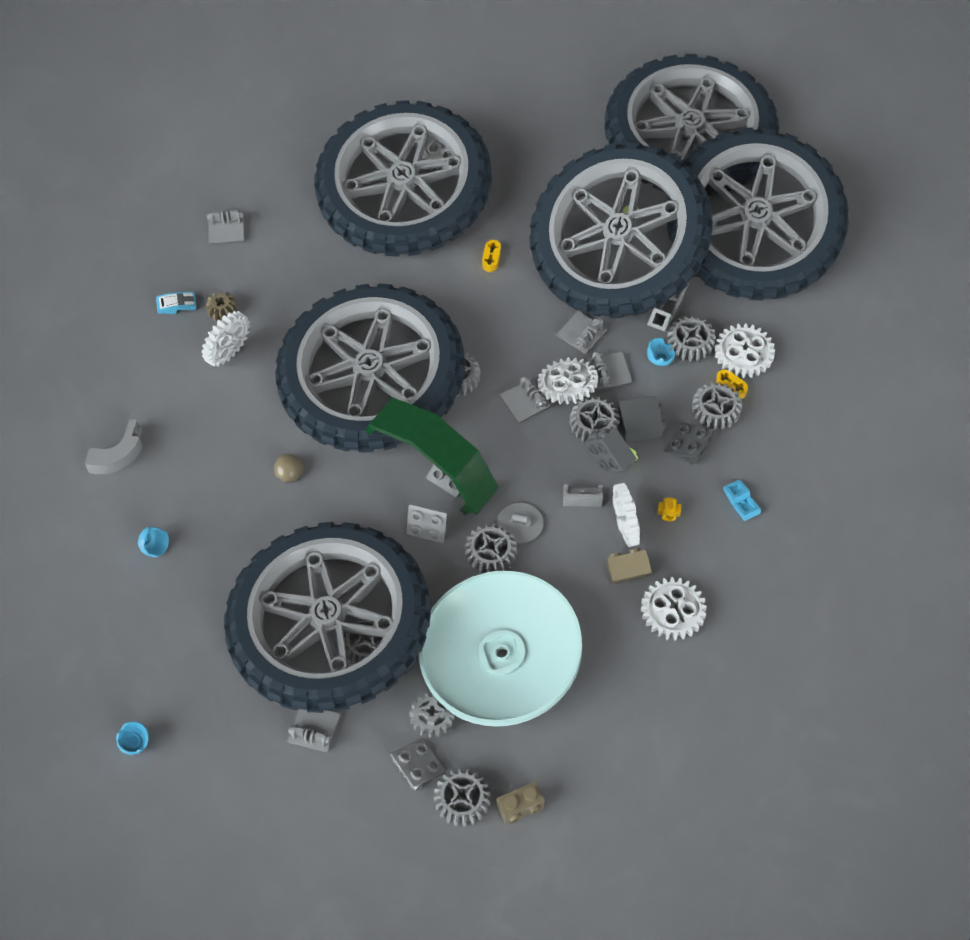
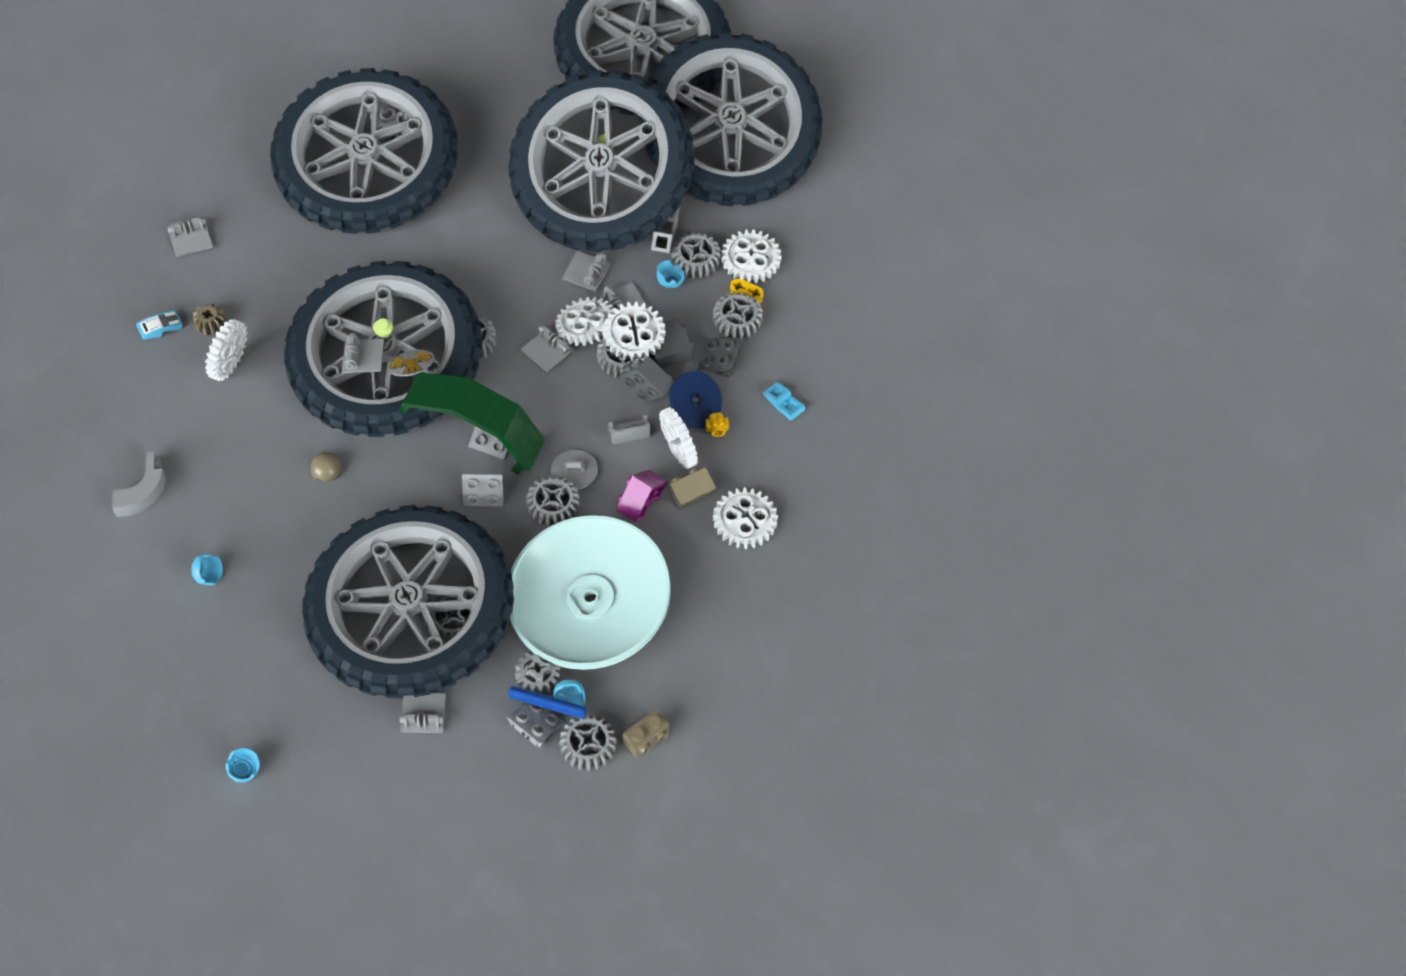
camera: 20 degrees left, 0 degrees up
(346, 369) = (362, 355): none -> light grey hinge
(372, 347) = (383, 327): none -> yellowish green plate
(388, 387) = (411, 363): none -> shield
(433, 748) = (547, 702): none -> blue axle
(456, 745) = (570, 691): none -> medium azure hair
(495, 256) = (479, 212): yellow beam -> none
(576, 560) = (639, 494): none -> magenta brick
(628, 401) = (652, 328): none -> white gear
(651, 466) = (695, 385): none -> dark blue piece

